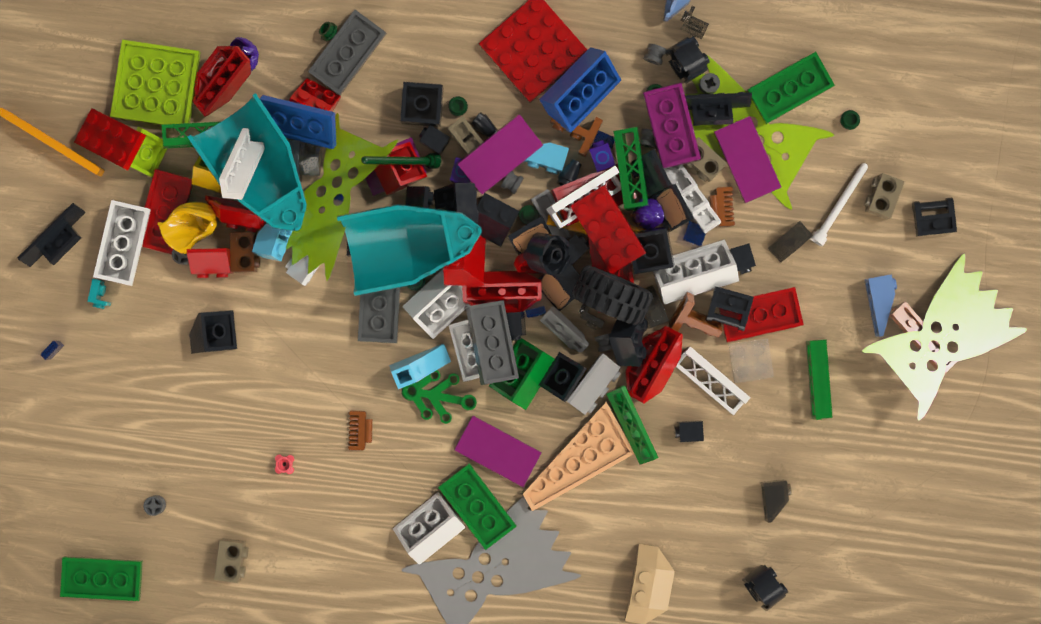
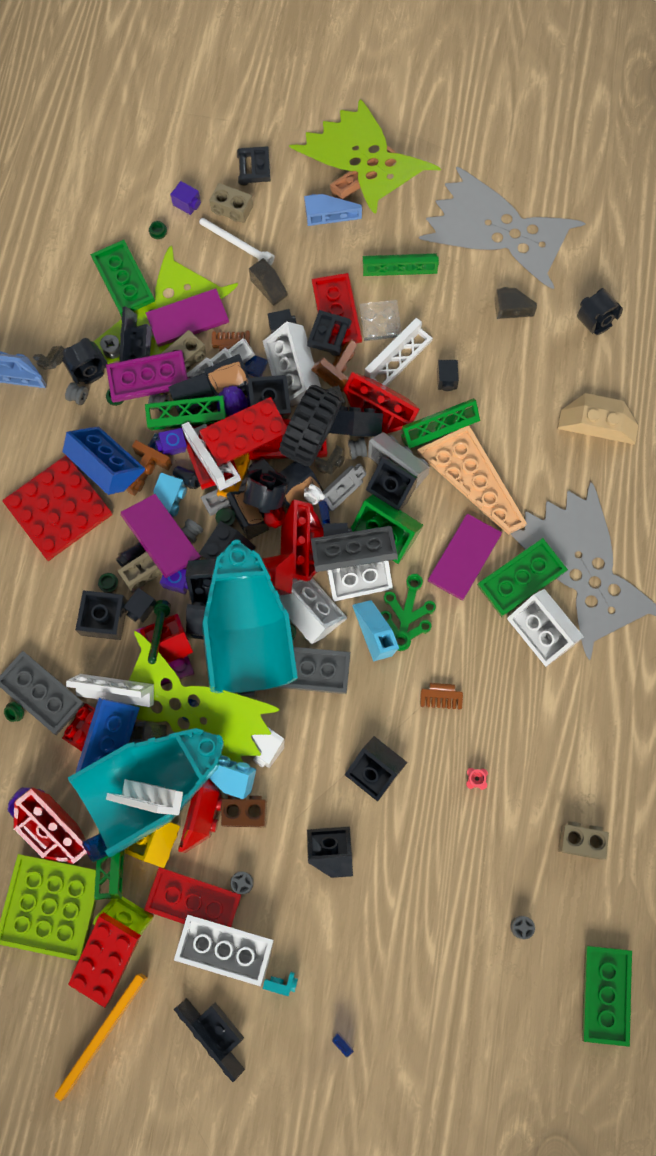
camera: 90 degrees left, 15 degrees down
(188, 225) = (209, 872): yellow piece -> none
(205, 121) = (95, 847): none -> clear blue tile
(209, 261) = (251, 848): red slope -> none
(289, 371) = (375, 768): none -> black slope
(349, 122) = (113, 689): none -> white fence
(551, 300) = (313, 494): none -> white plate
(868, 448) = (466, 227): none -> light grey piece
(889, 147) = (185, 198): none -> dark purple brick

